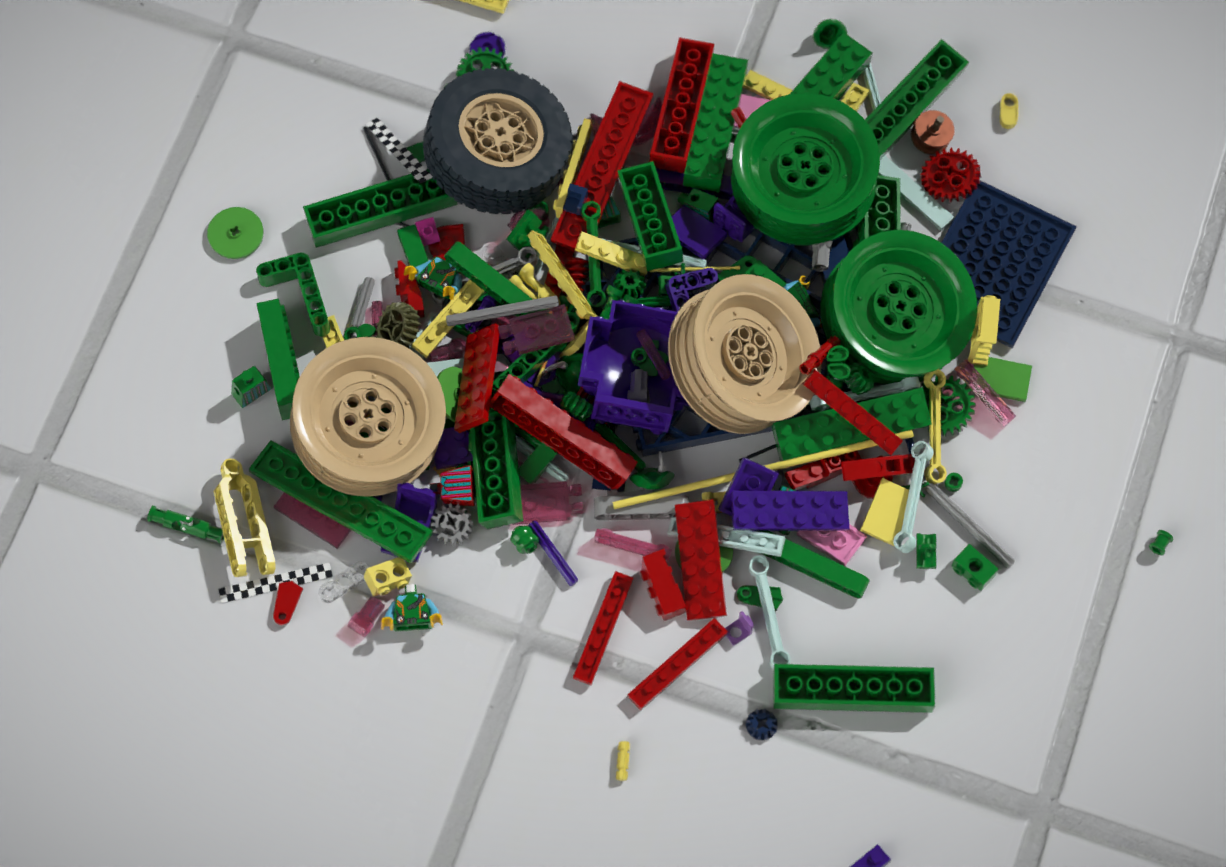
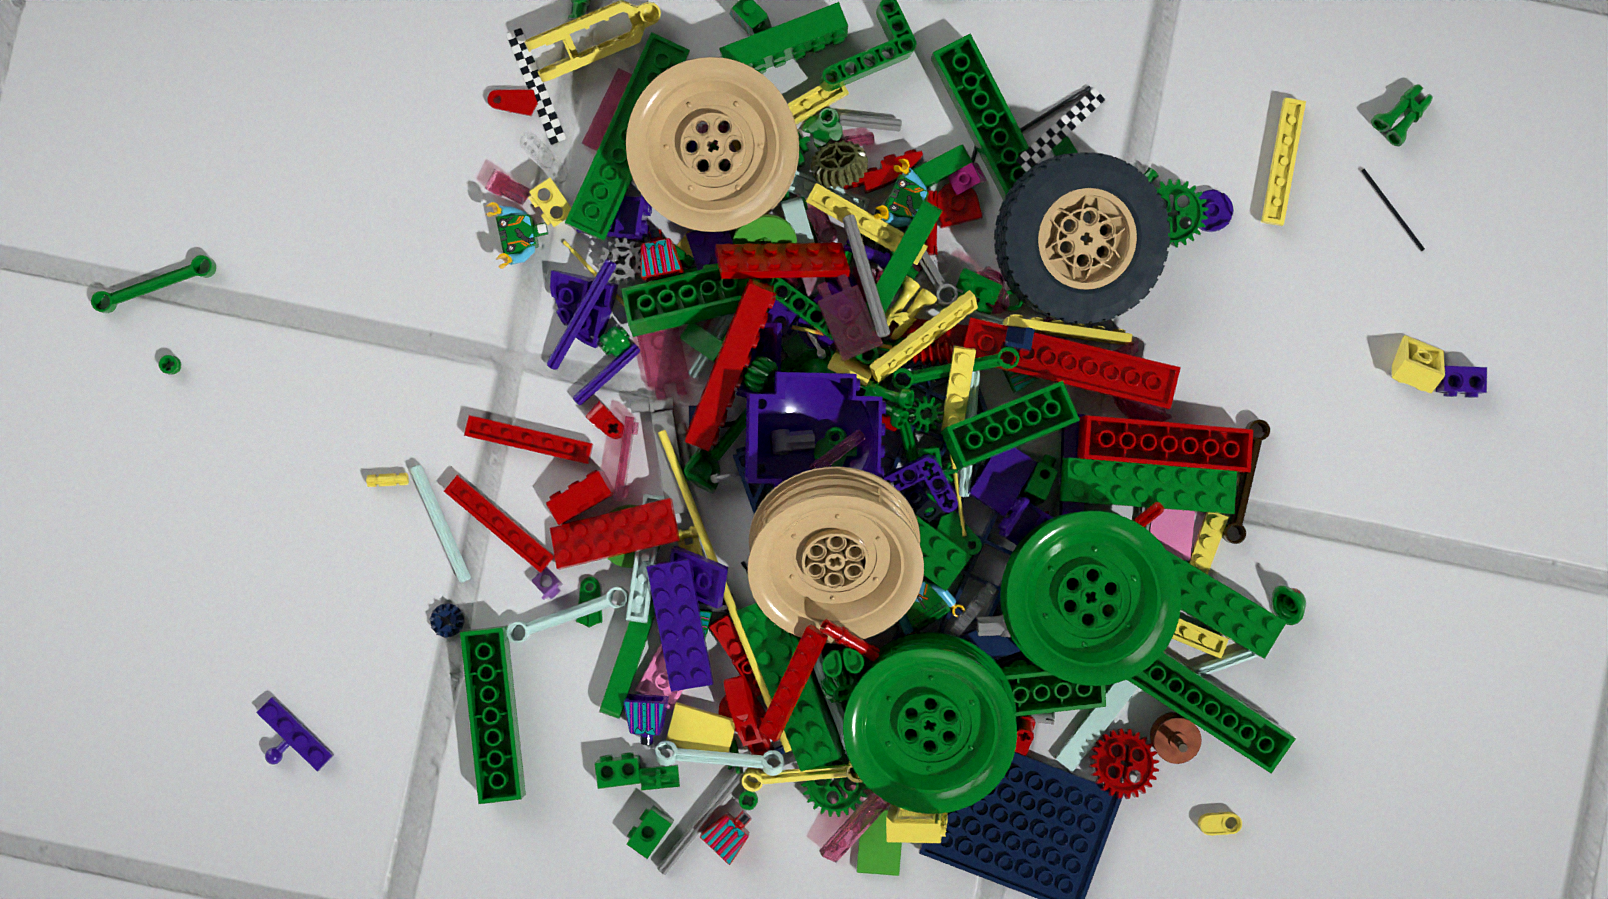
camera: 85 degrees right, 20 degrees up
(460, 551) = (588, 267): none -> light yellow piece
(486, 564) = (569, 292): none -> dark purple brick
(496, 561) = (581, 314): none -> dark purple axle
(587, 517) = (651, 405): none -> light grey pin
(593, 559) = (603, 419): none -> red piece
(670, 718) = (440, 523): none -> light aqua axle
(752, 63) = (1245, 486): none -> dark brown piece
(803, 268) = (973, 609): none -> clear beam
(869, 554) = (646, 715): none -> torso
(921, 587) = (620, 776): none -> green brick
(984, 501) = (727, 835): none -> torso

